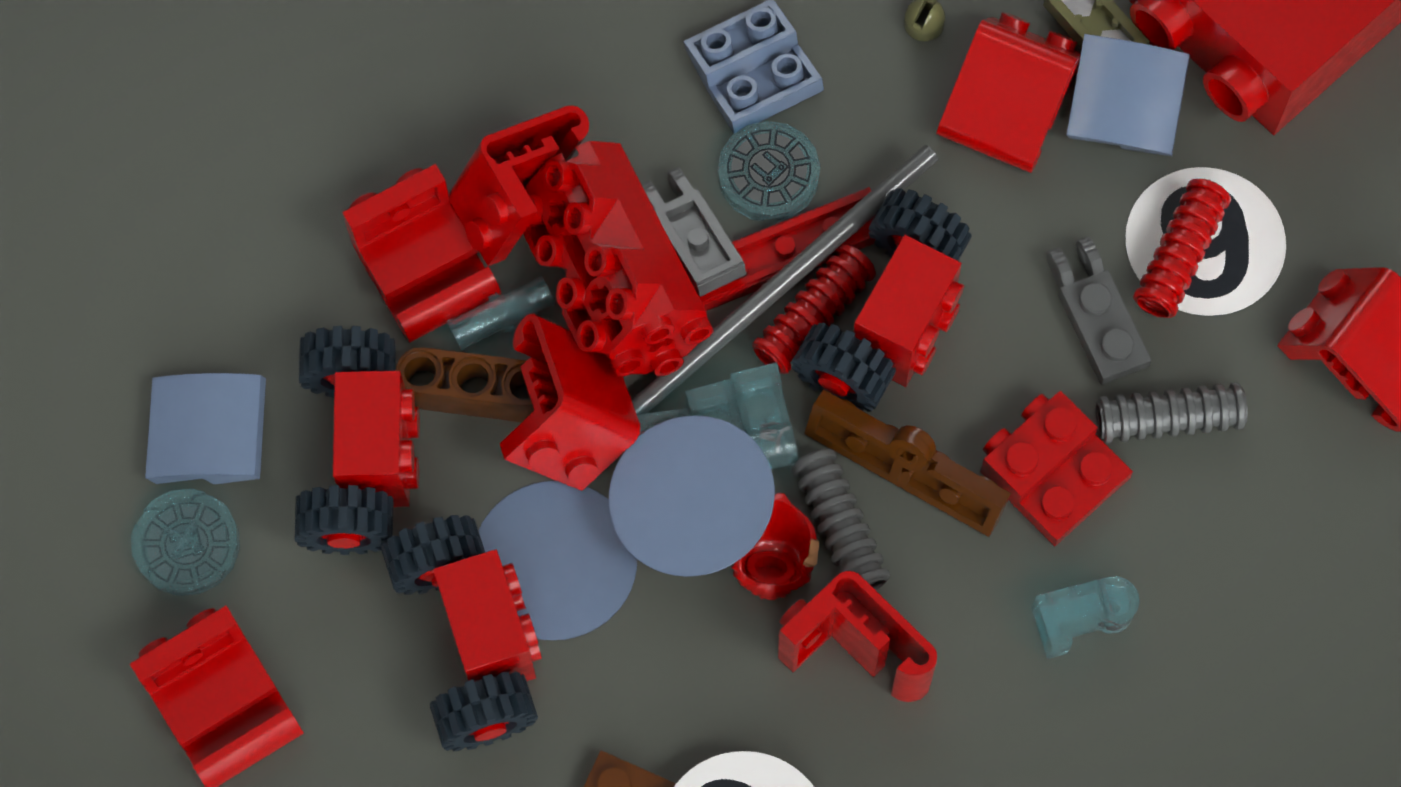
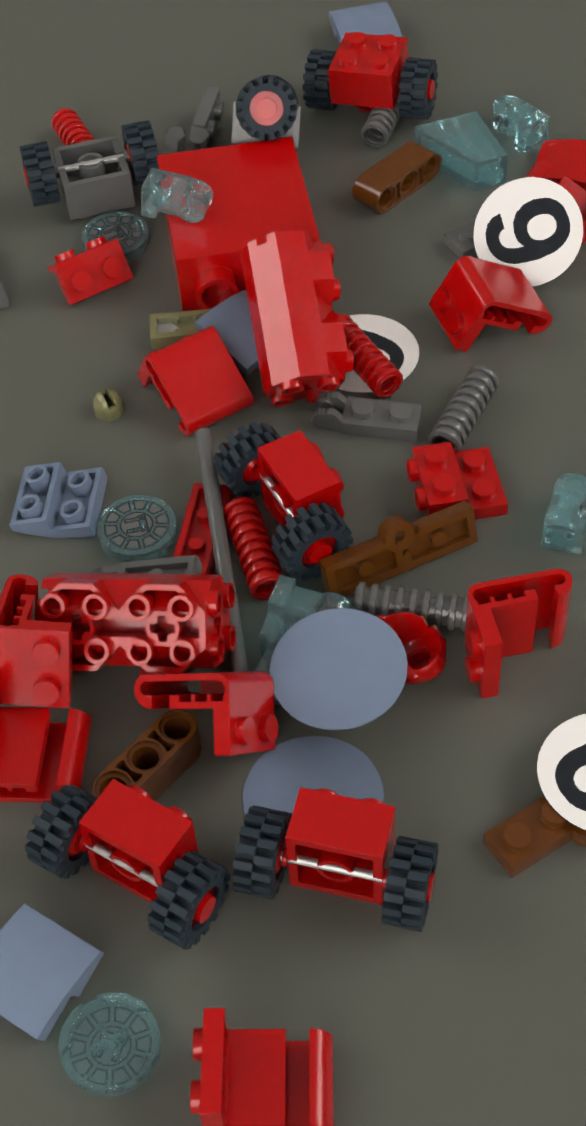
camera: 55 degrees left, 20 degrees down
(501, 312) = (106, 725): clear light blue pin -> none
(1146, 145) = (292, 316): none -> red brick

